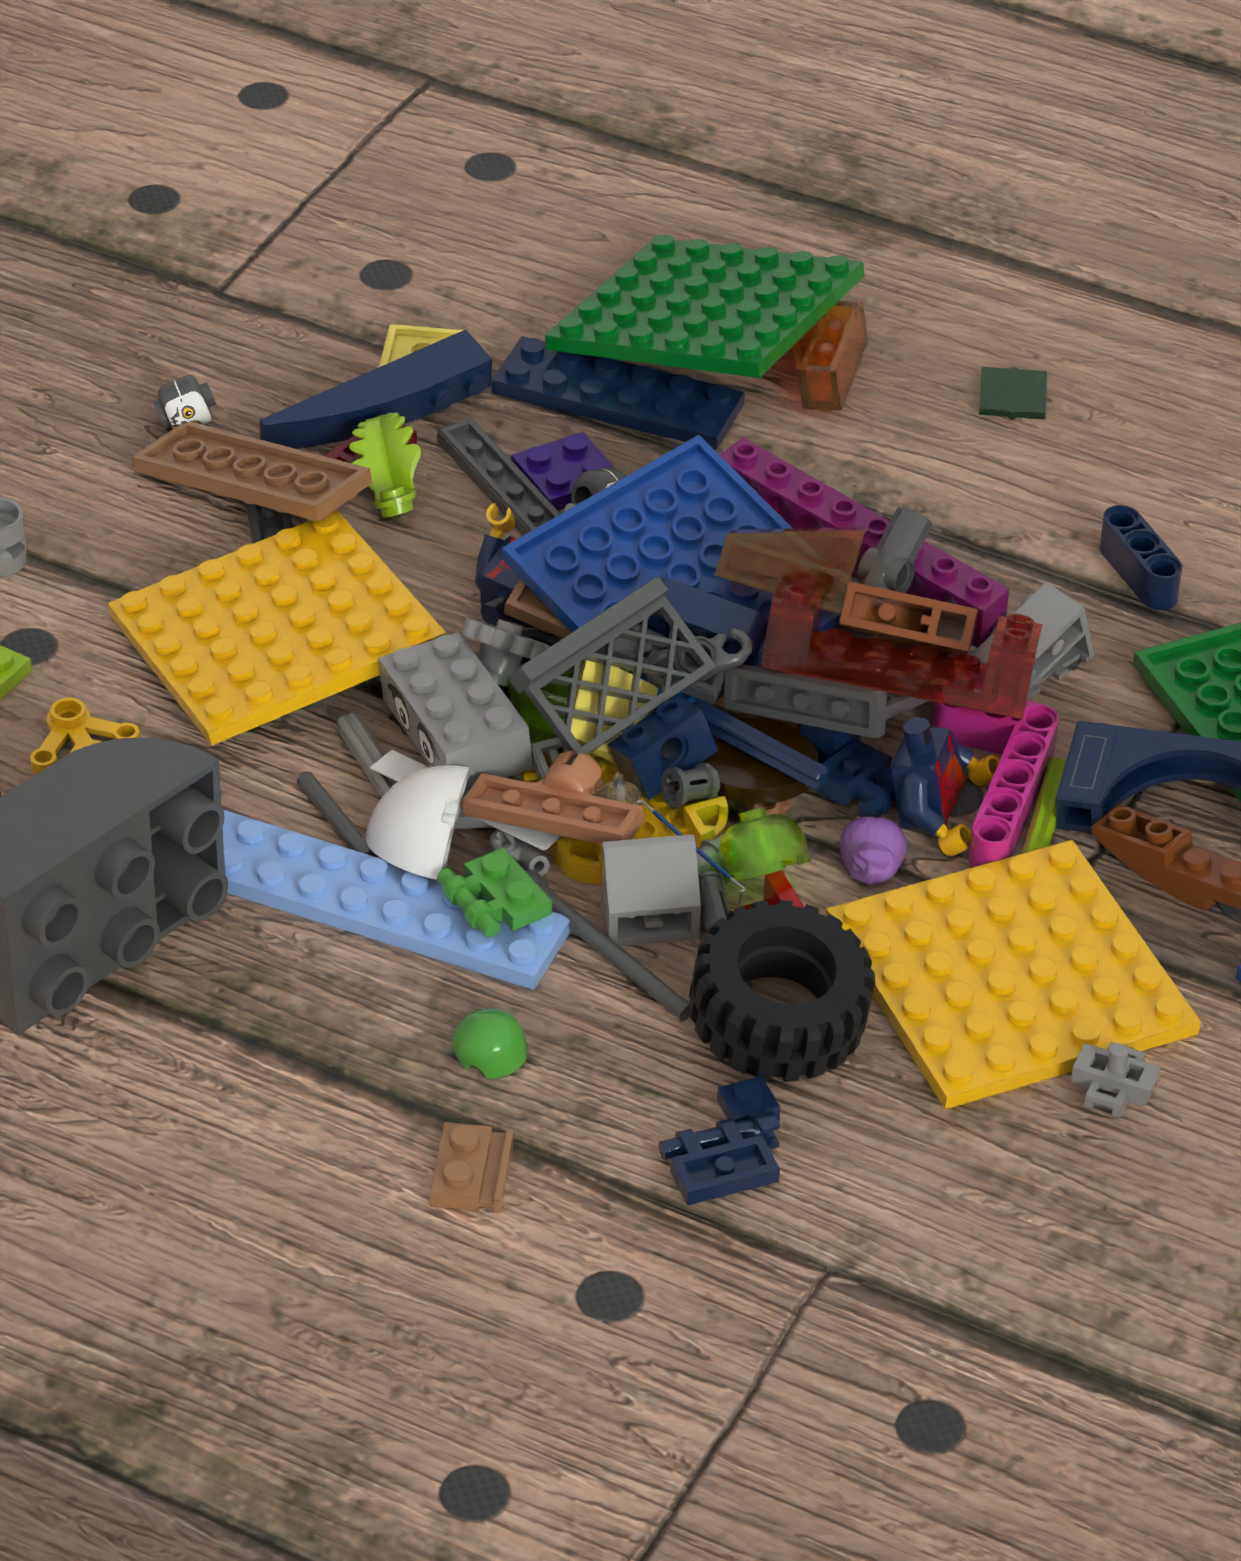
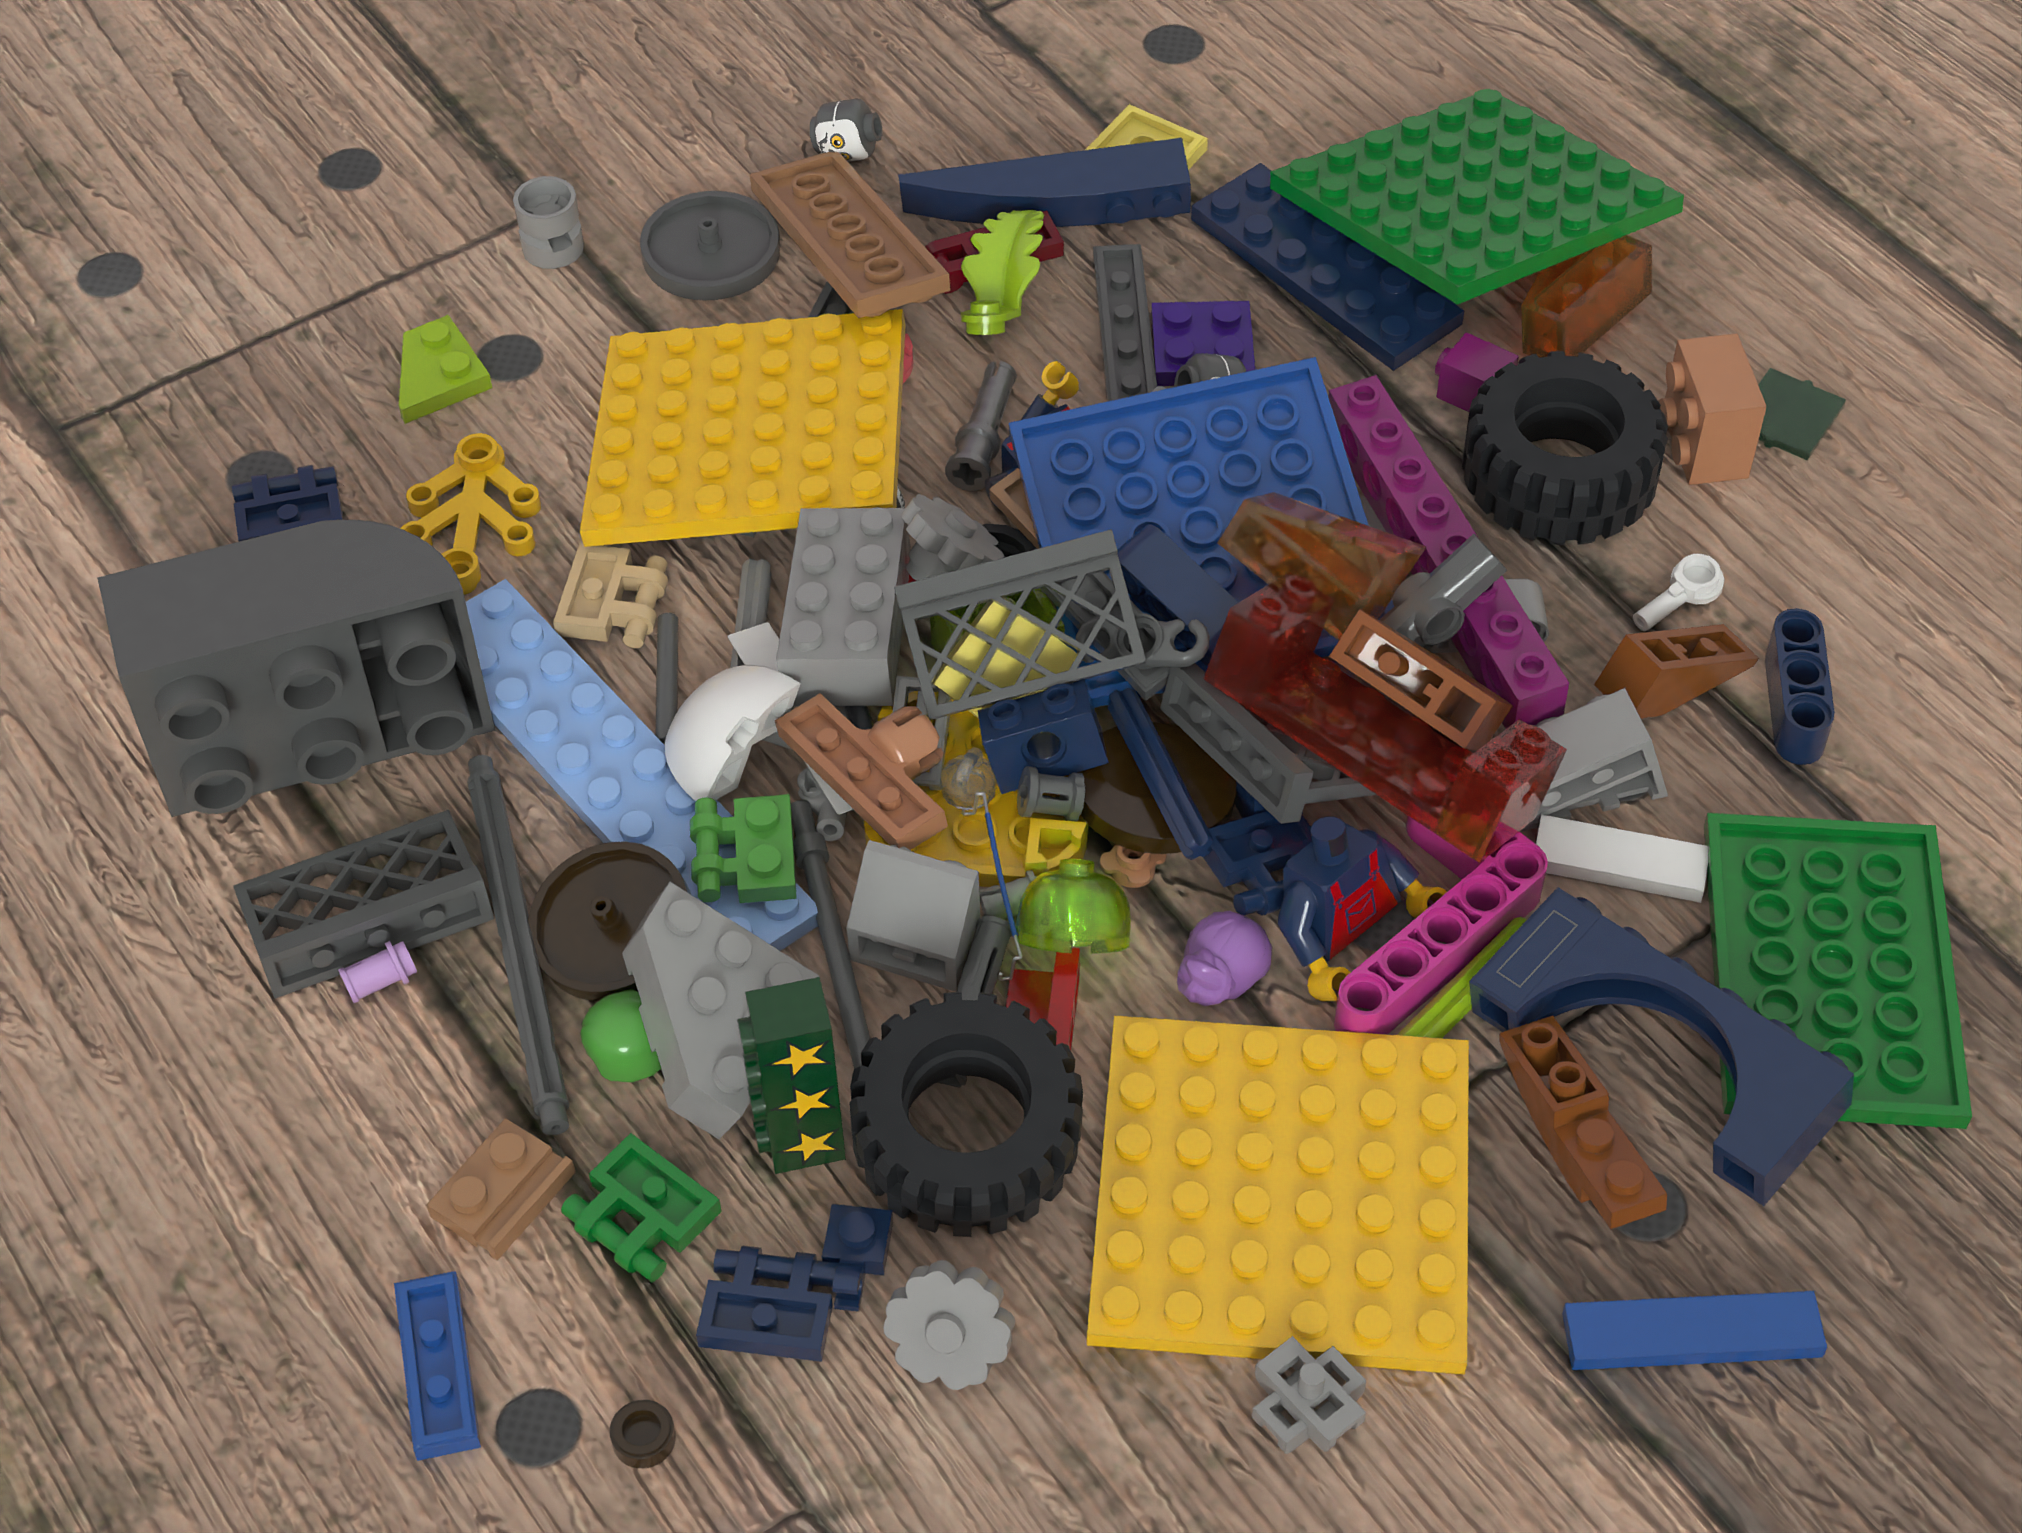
camera: 30 degrees right, 10 degrees up
(131, 519) = (710, 245): none -> dark grey piece
(241, 781) = (595, 590): none -> tan plate
(242, 1046) = (416, 916): none -> dark grey fence
(281, 1060) = (378, 971): none -> lavender pin
(362, 1015) = (518, 950): none -> dark grey piece
(425, 975) = (592, 911): none -> dark brown piece
(451, 583) = (978, 439): none -> flat silver pin
(511, 1285) = (436, 1366): none -> blue tile
(553, 990) = (692, 991): none -> light grey brick
(588, 1127) = (654, 1194): none -> green plate
(665, 996) = (792, 1075): none -> dark green brick
(688, 1268) = (642, 1434): none -> dark brown tile
(785, 430) = (1467, 367): none -> magenta brick
(860, 1117) = (949, 1325): none -> light grey plant
(888, 449) = (1557, 493): none -> black tyre
(971, 398) = (1712, 409): none -> nougat brick
(1024, 516) = (1693, 580): none -> white plate
(1055, 562) = (1673, 666): none -> dark orange slope
(1100, 699) = (1623, 858): none -> white tile

